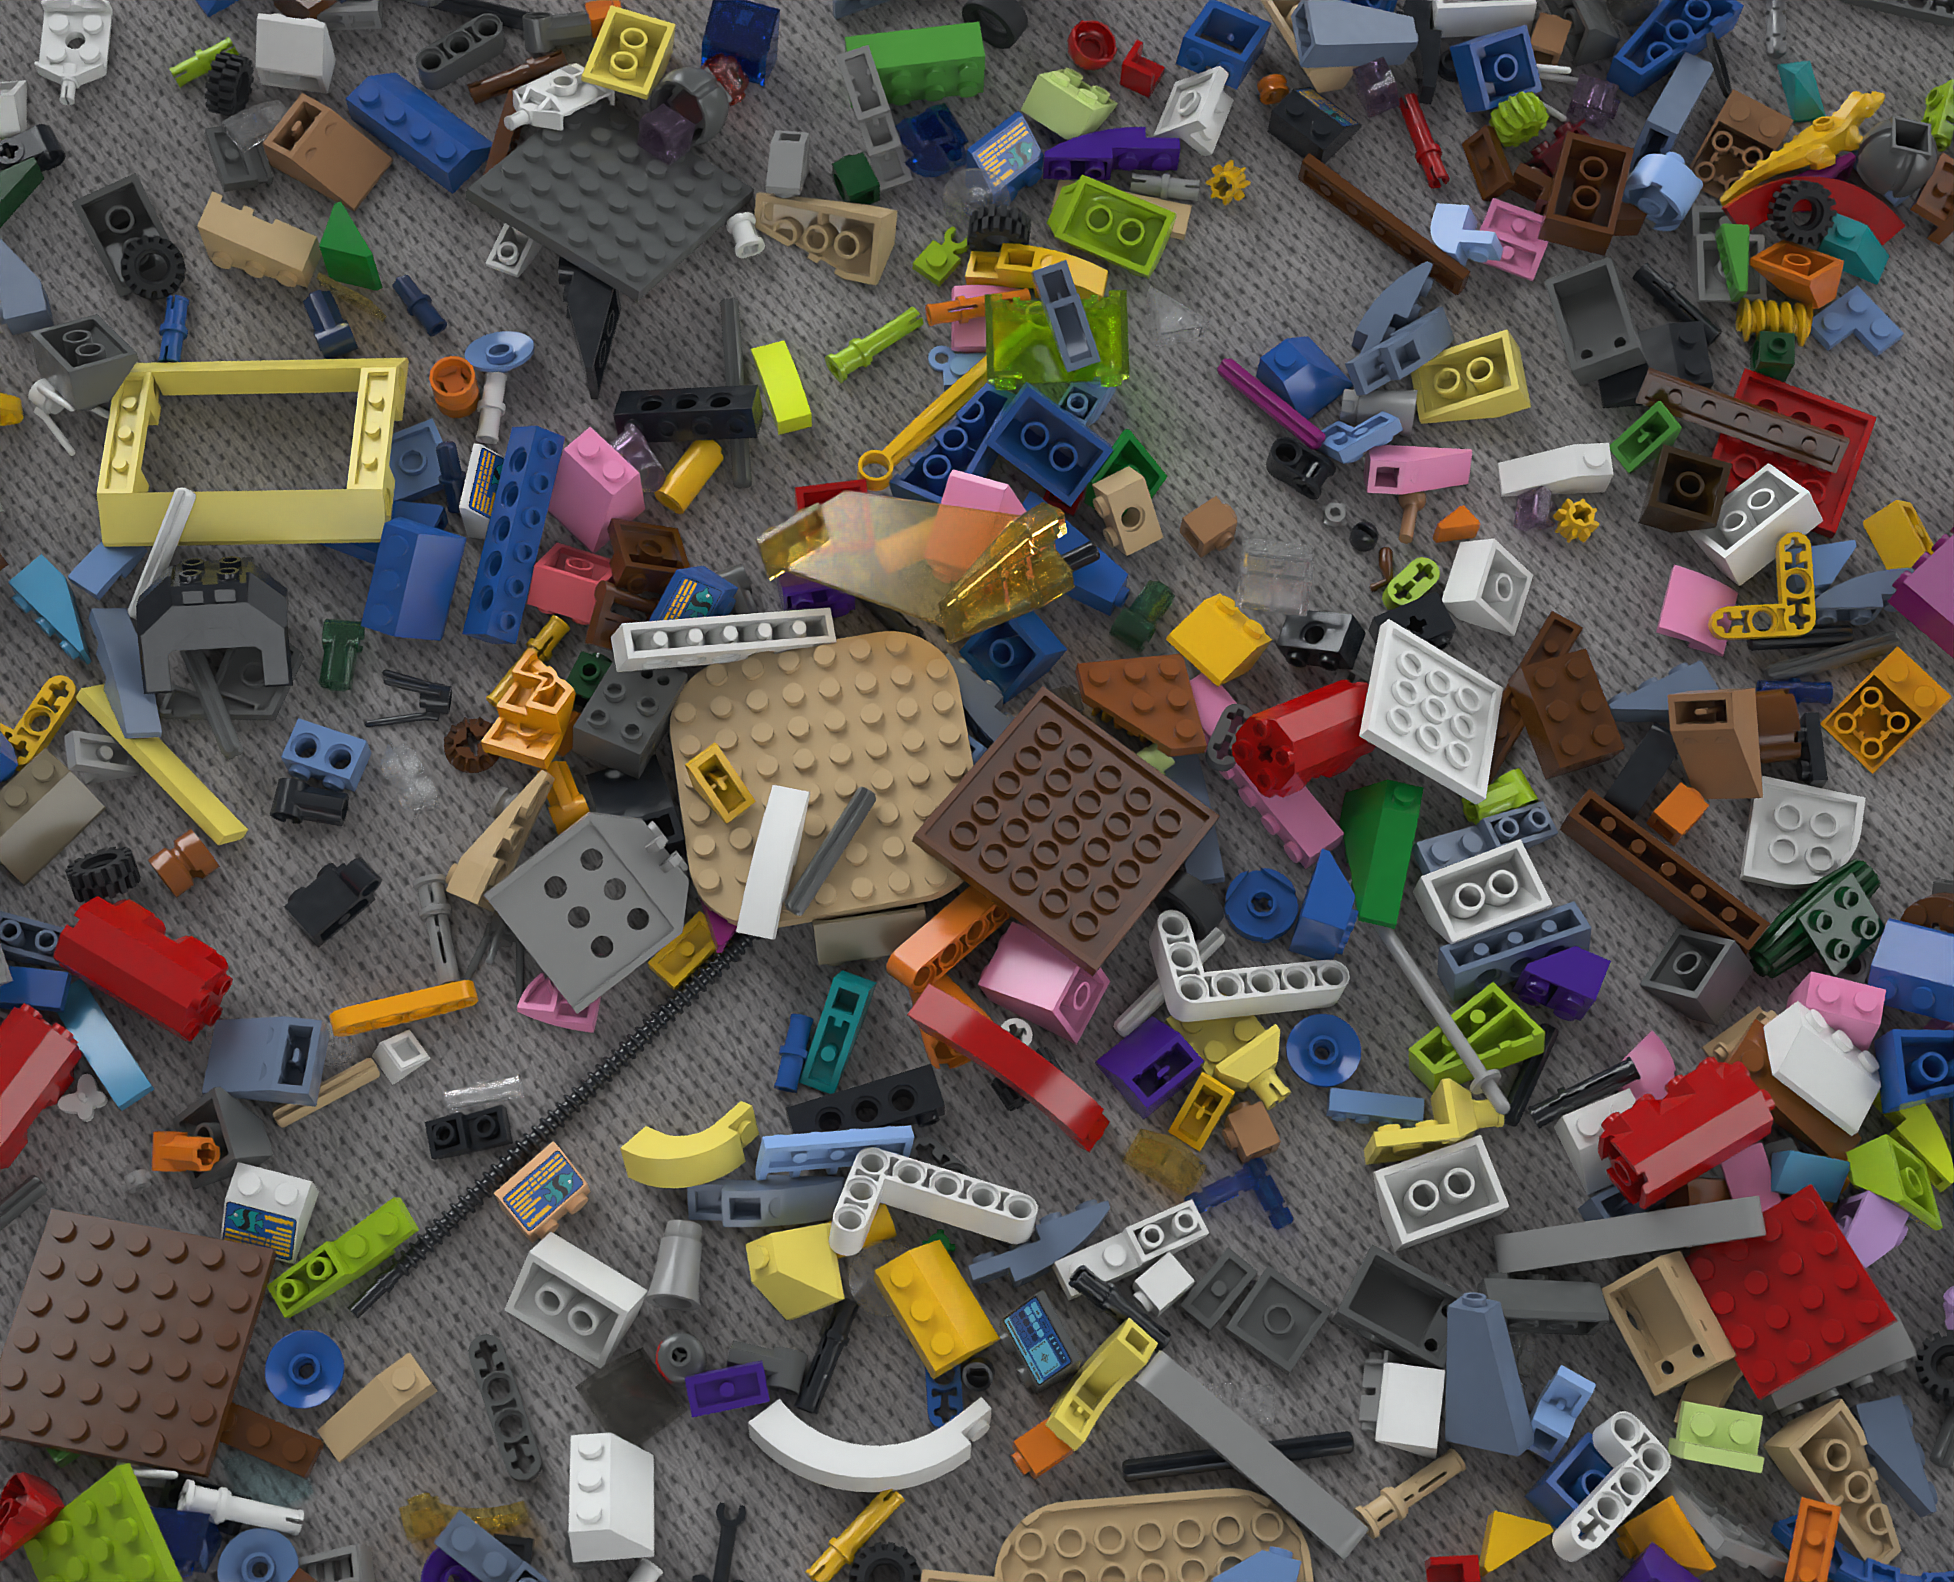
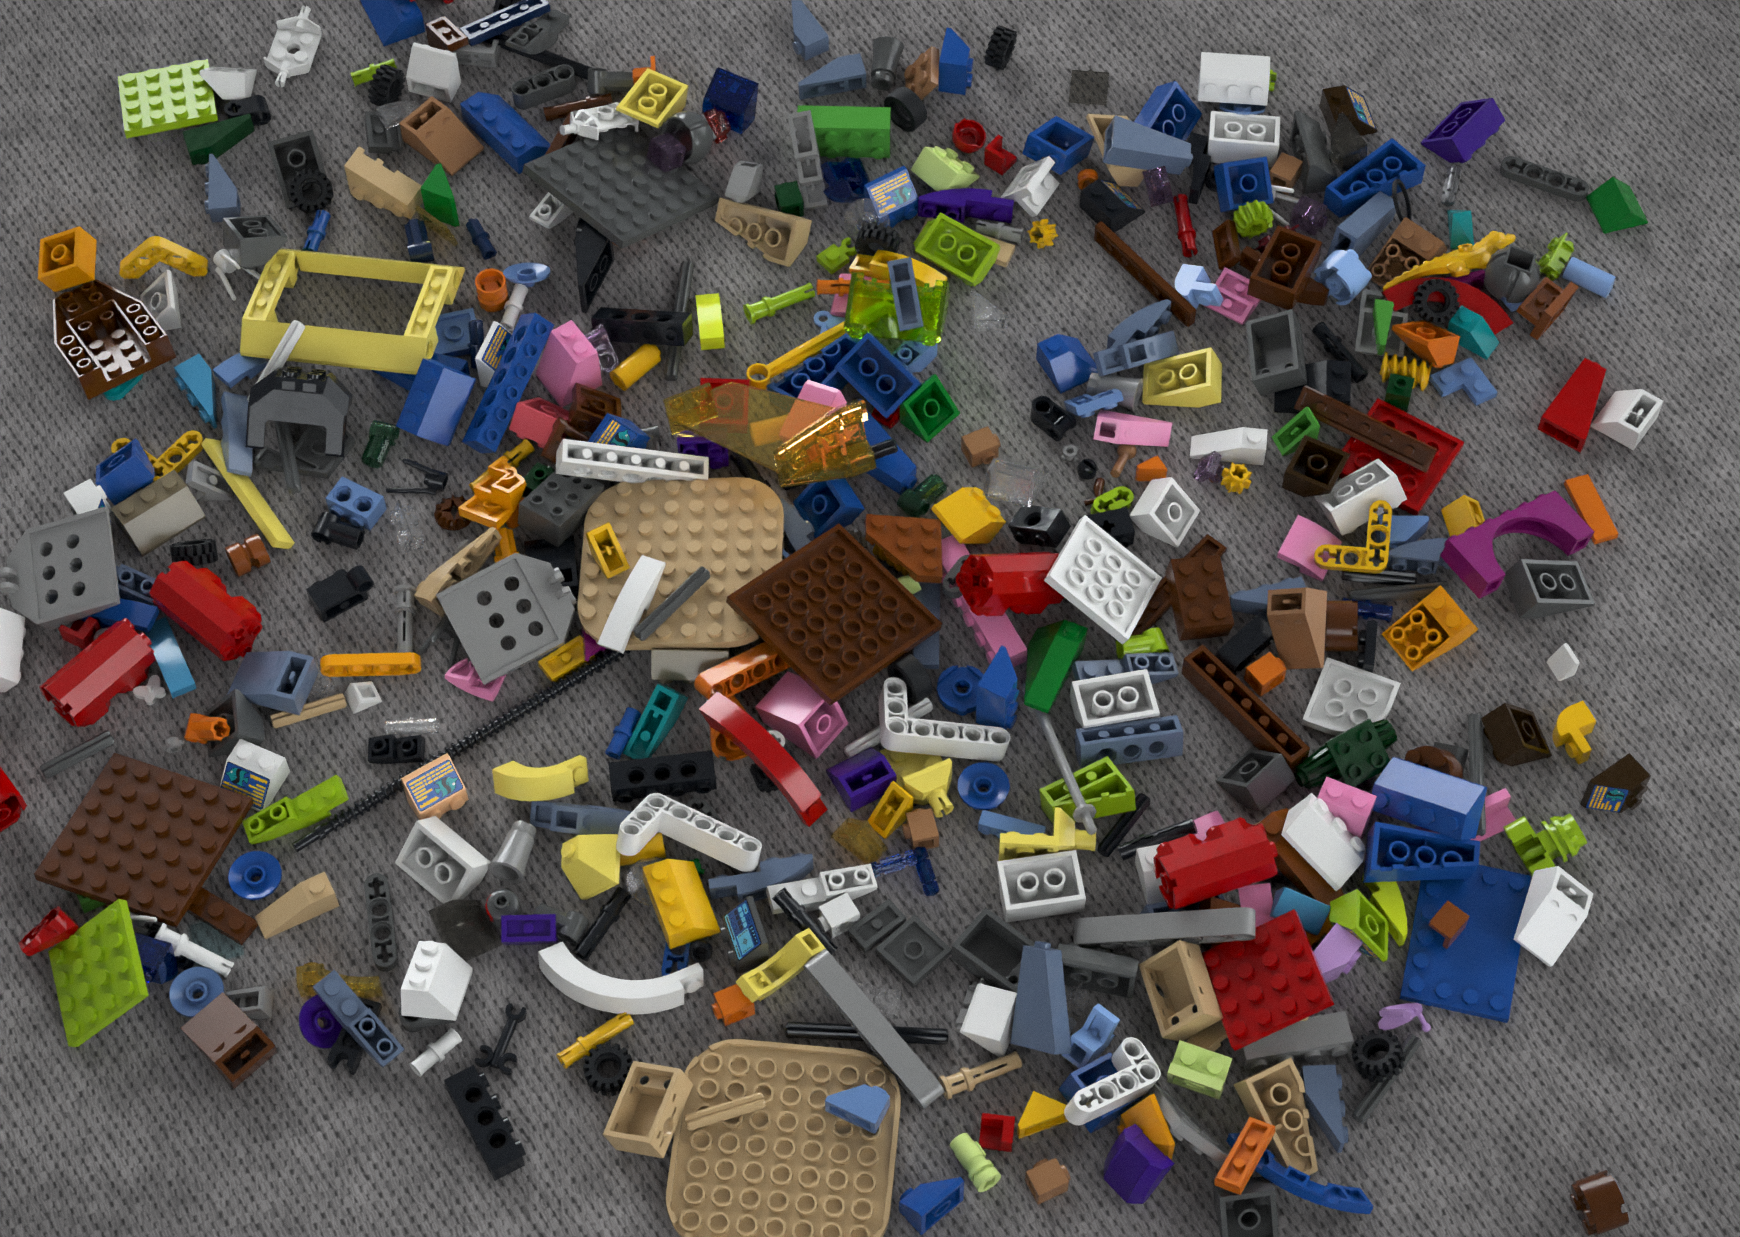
camera: 15 degrees right, 10 degrees down
(745, 235) = (706, 220): white bush -> none
(827, 1149) = (627, 789): light blue hinge -> none
(1140, 524) = (932, 438): tan brick -> none
(1271, 403) = (1040, 375): magenta axle -> none
(1563, 982) = (1157, 764): dark purple slope -> none

